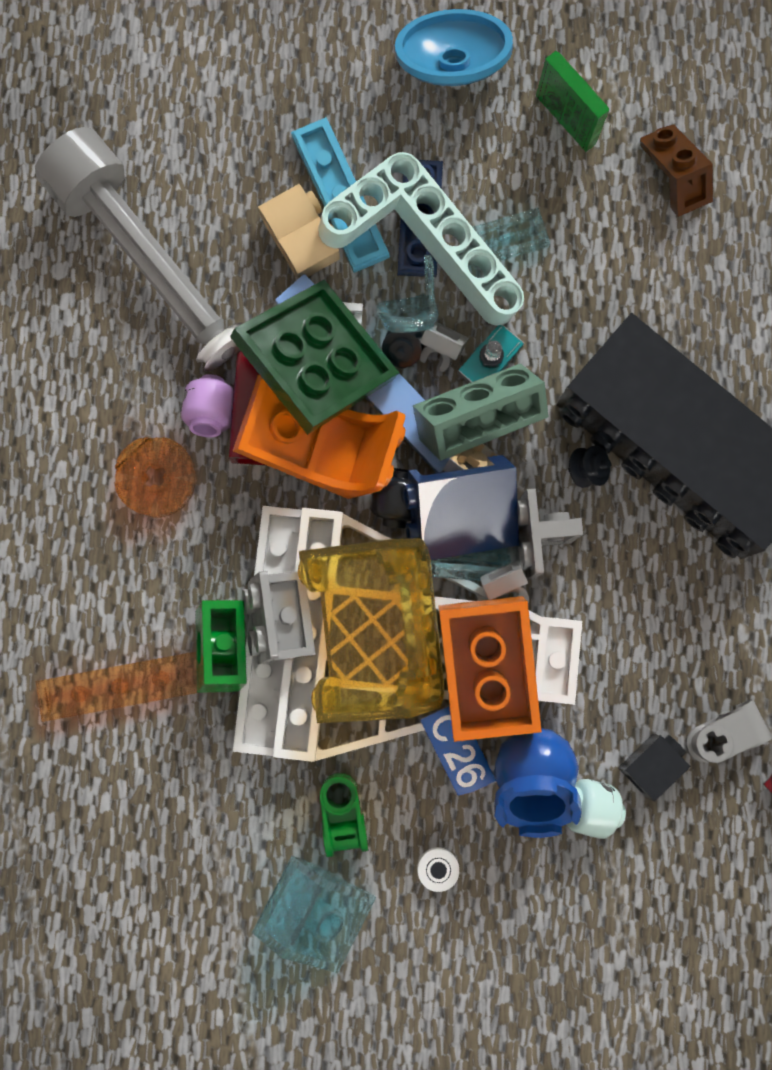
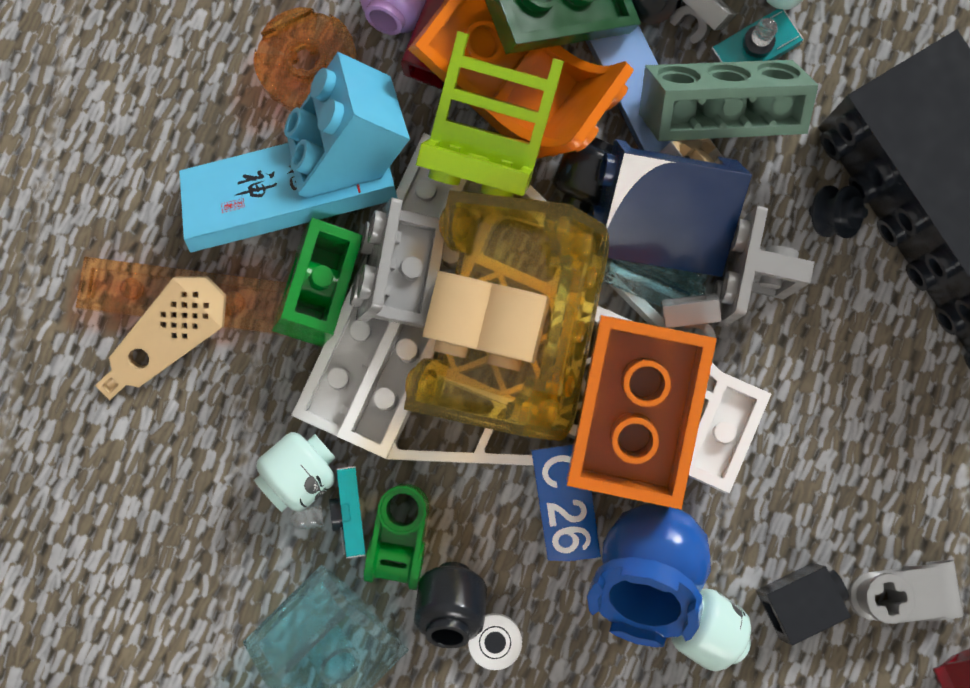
camera: 20 degrees right, 0 degrees up
(112, 726) = (158, 339): none -> tan piece
(171, 579) = (259, 196): none -> medium azure tile
(204, 524) = (345, 128): none -> medium azure slope
(249, 792) = (295, 471): none -> light aqua head
(296, 813) = (344, 514): none -> teal piece
(311, 514) = (479, 155): none -> lime plate
(356, 637) = (485, 319): none -> tan brick
(397, 853) = (450, 605): none -> black head

